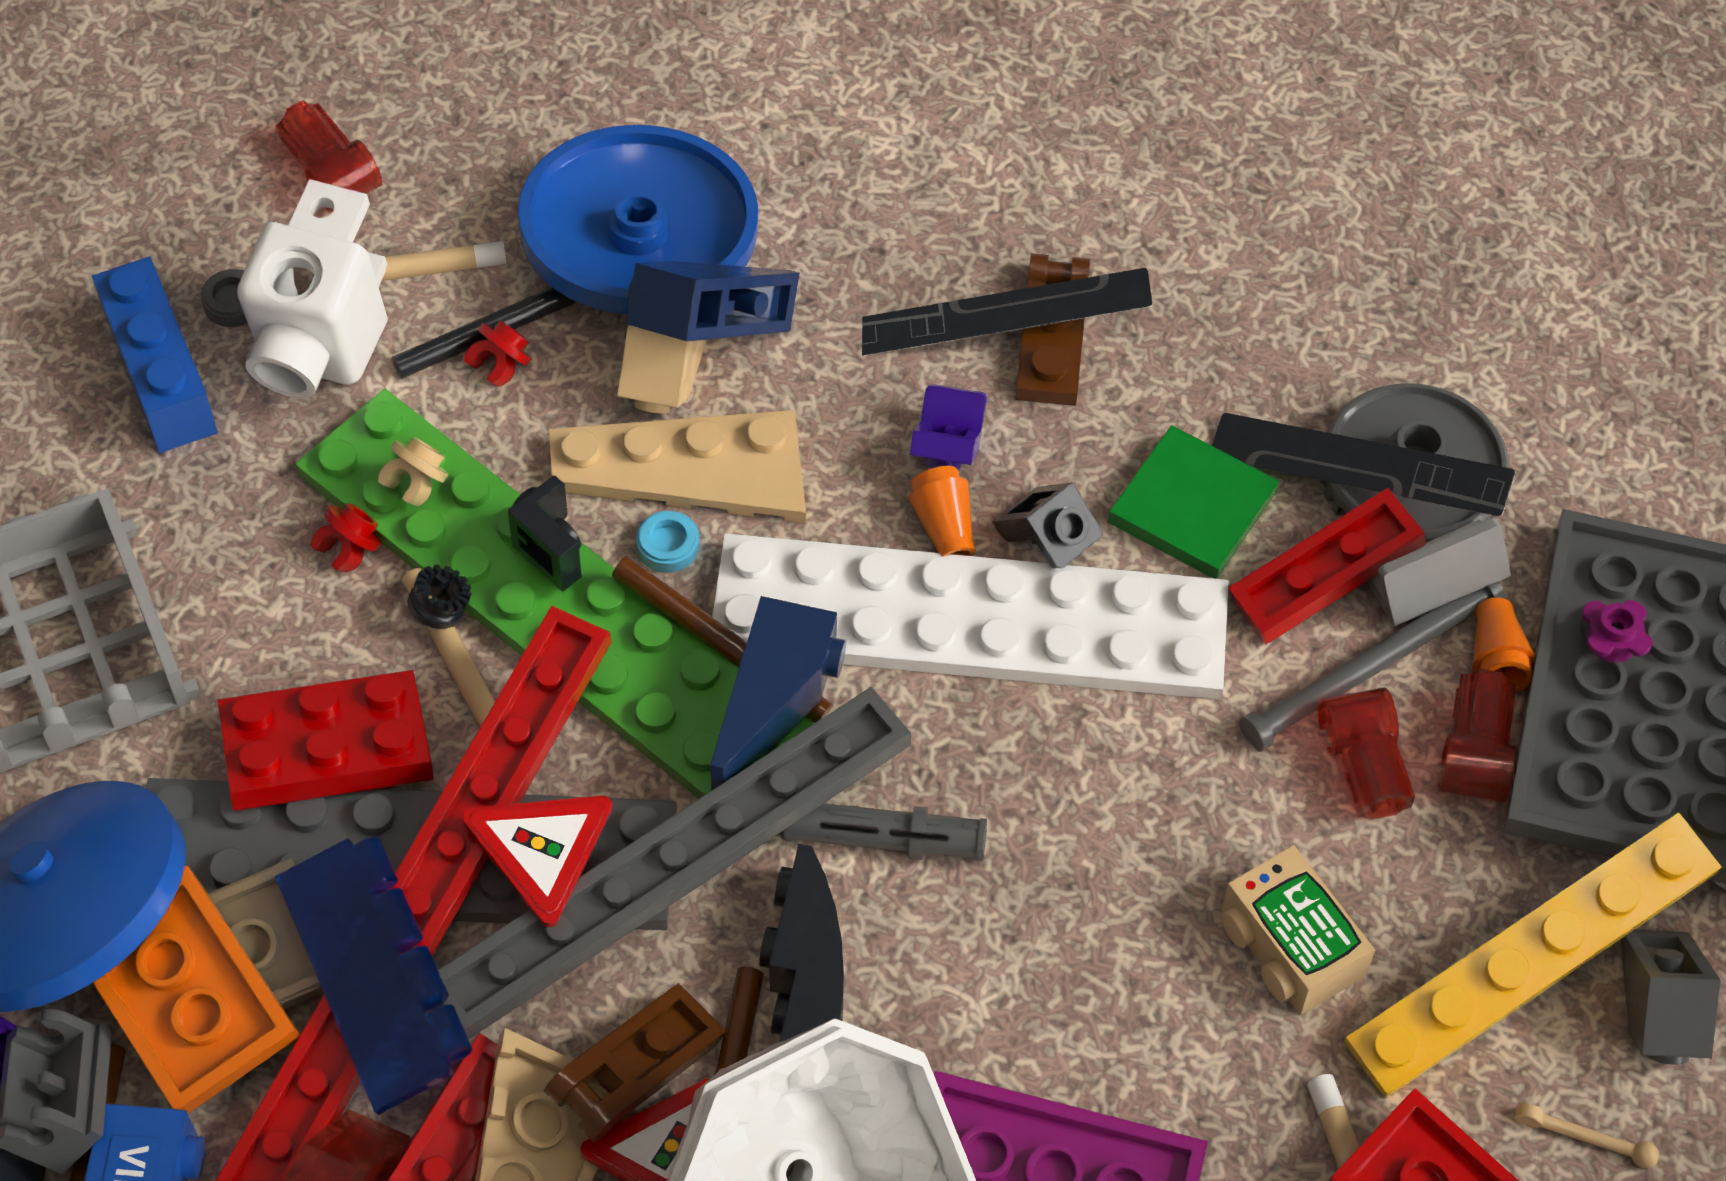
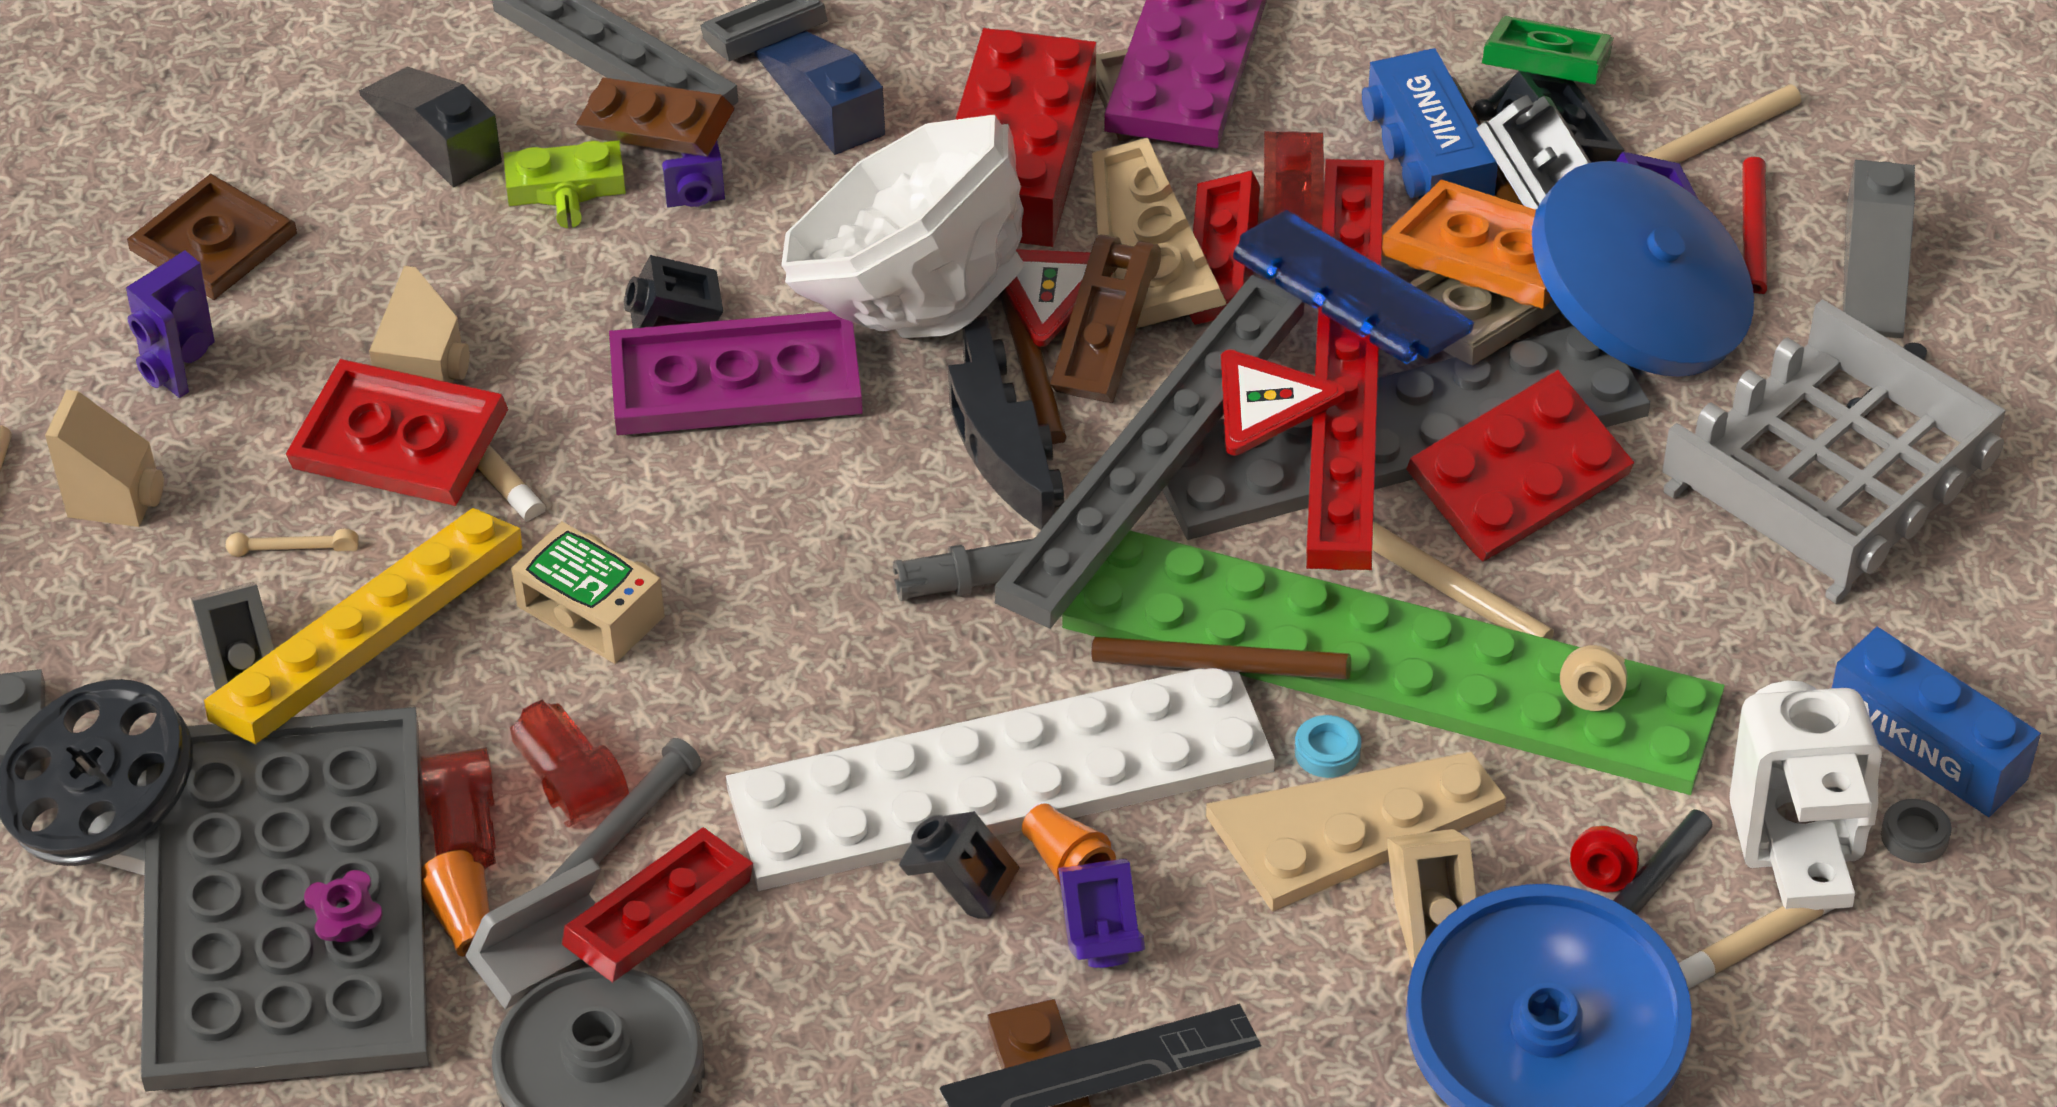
camera: 160 degrees right, 10 degrees down
(326, 151) = (1915, 986): clear red piece -> none
(354, 531) = (1628, 635): red plate -> none
(439, 583) = (1492, 587): black bush -> none
(544, 535) = (1430, 647): black bracket -> none
(710, 300) = (1409, 897): dark blue slope -> none
(777, 682) = (1140, 600): dark blue slope -> none
(1193, 502) = (821, 956): green tile -> none
(1365, 464) = (653, 1001): black sticker -> none

